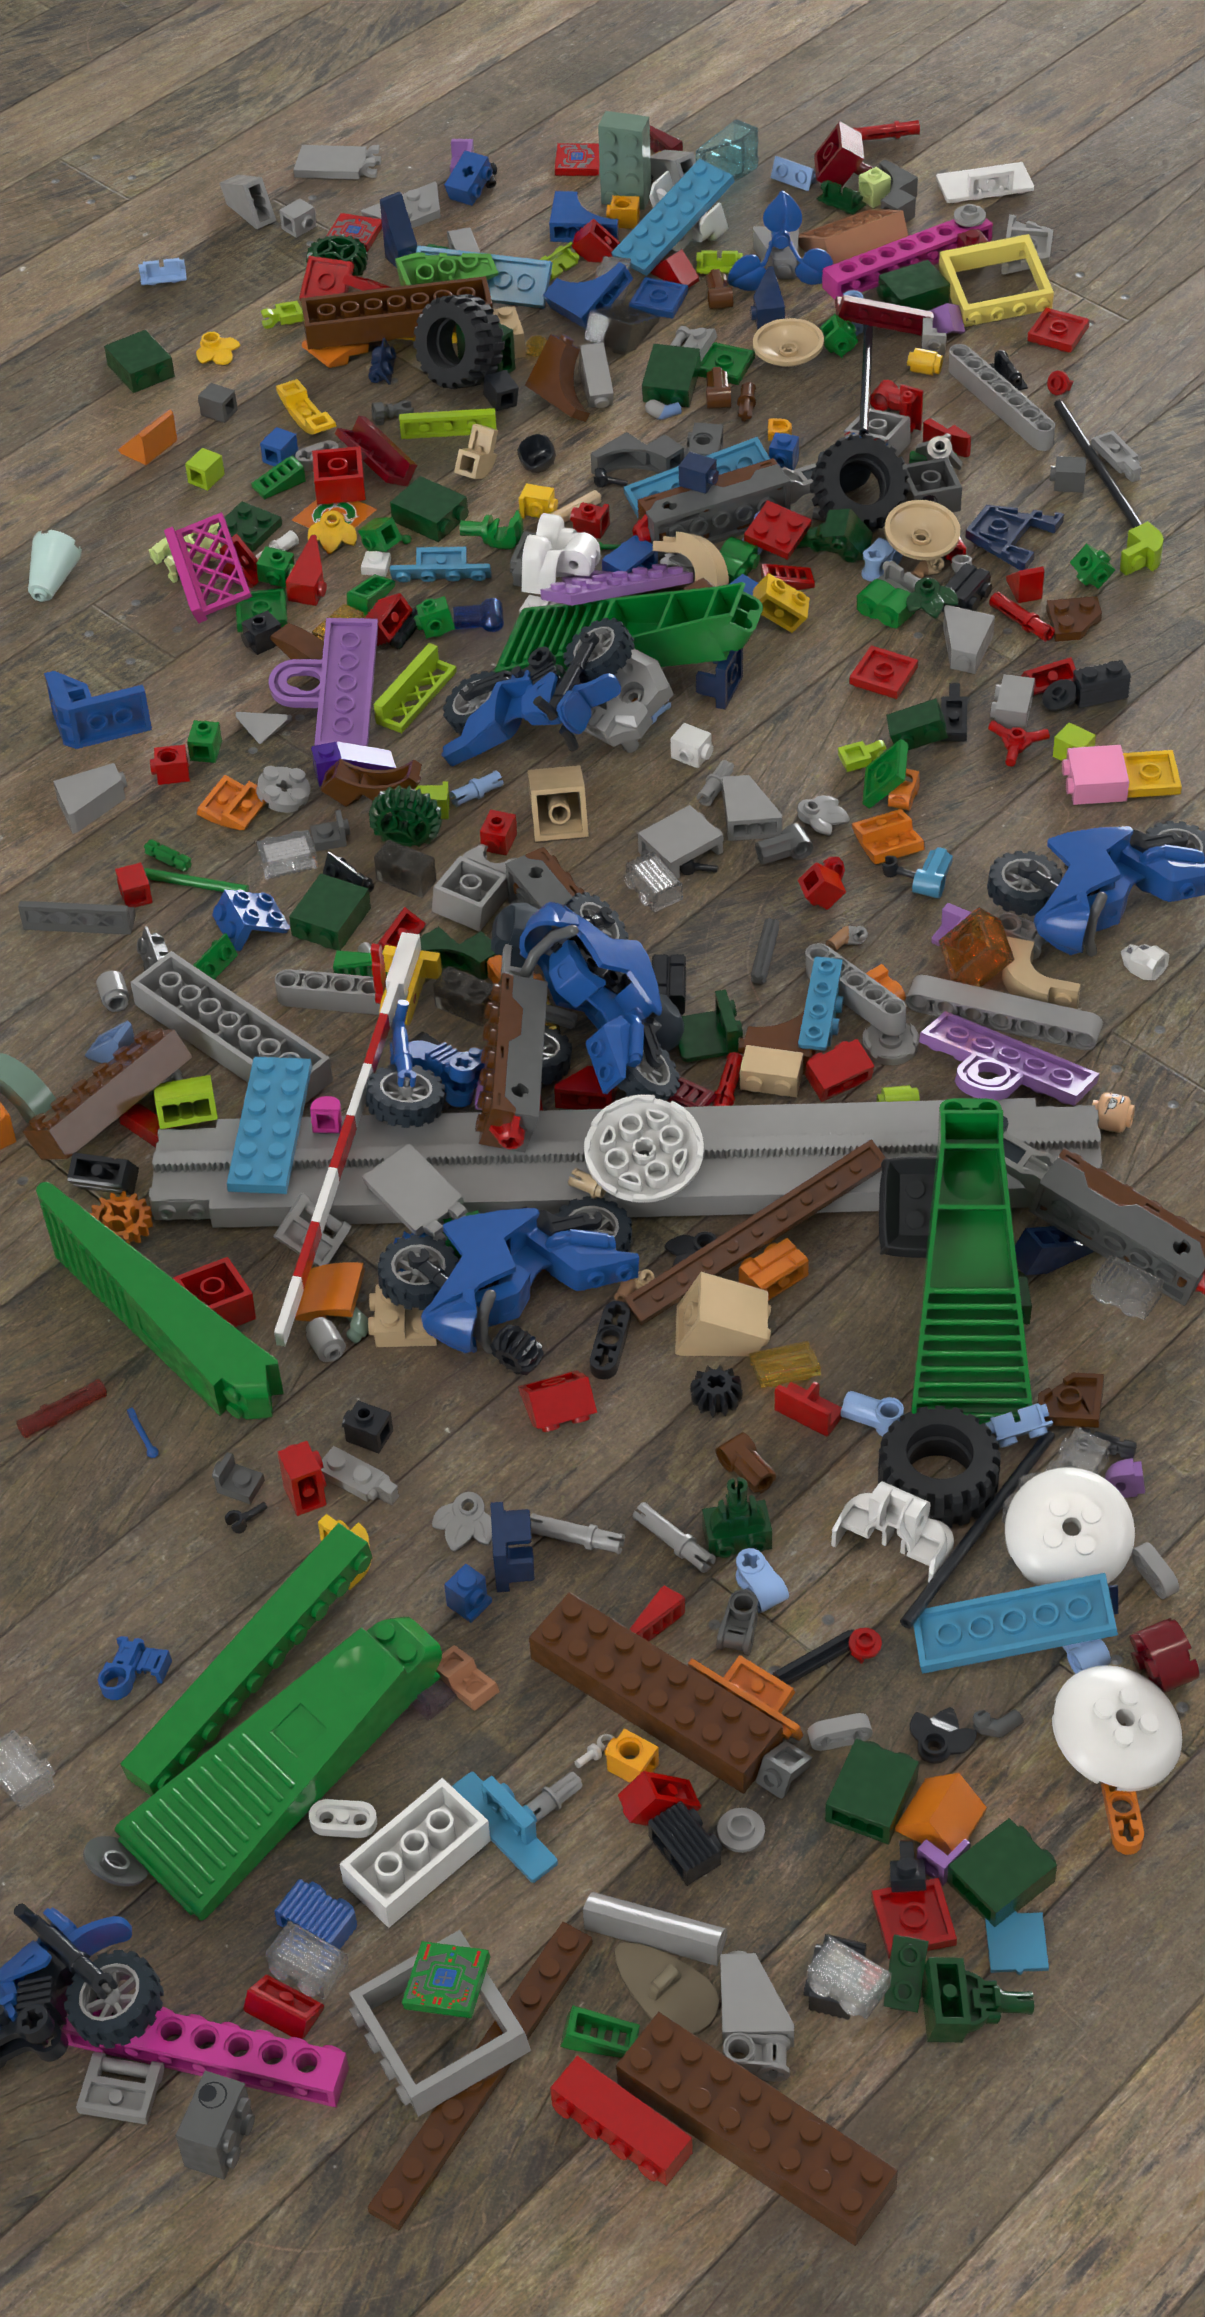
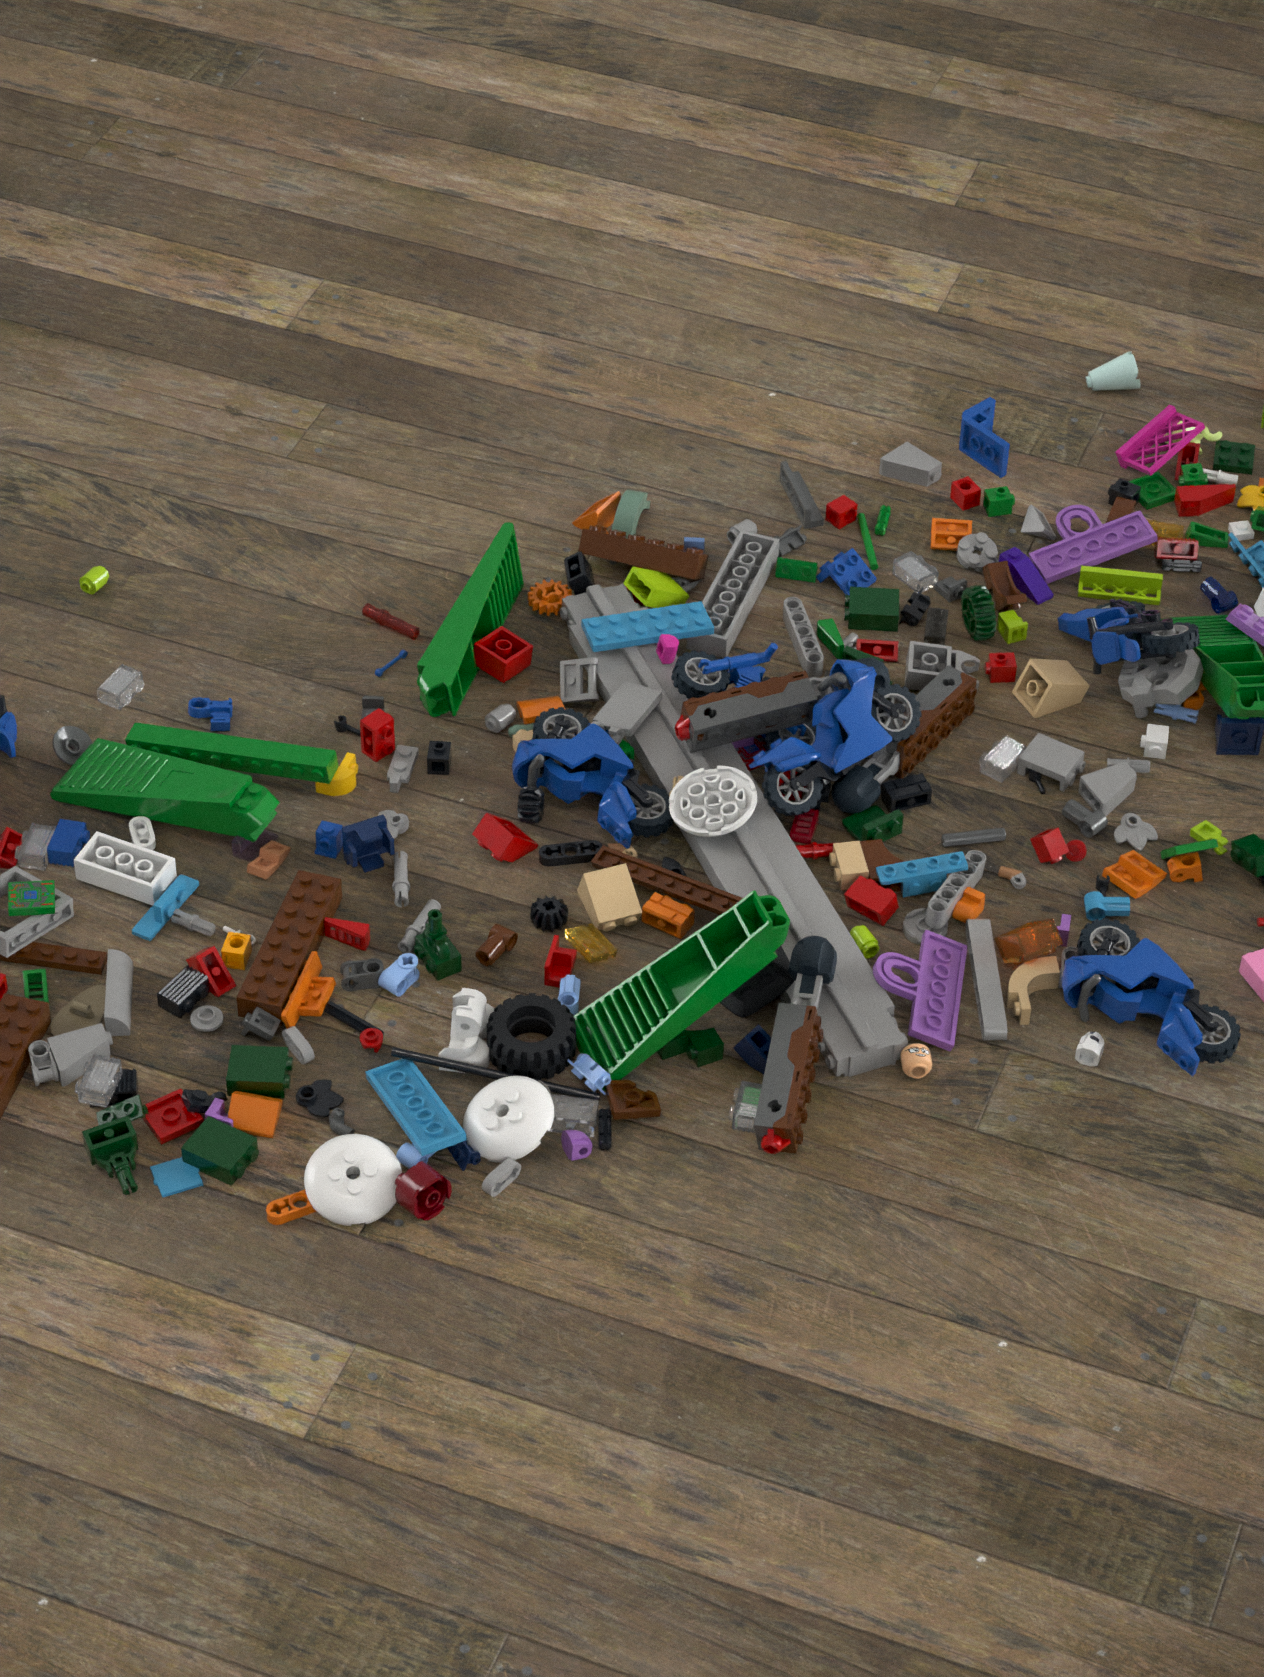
camera: 65 degrees right, 5 degrees down
(406, 971) = (797, 652): piece -> none
(434, 617) = (1195, 571): green brick -> none
(476, 788) = (1041, 646): light blue pin -> none

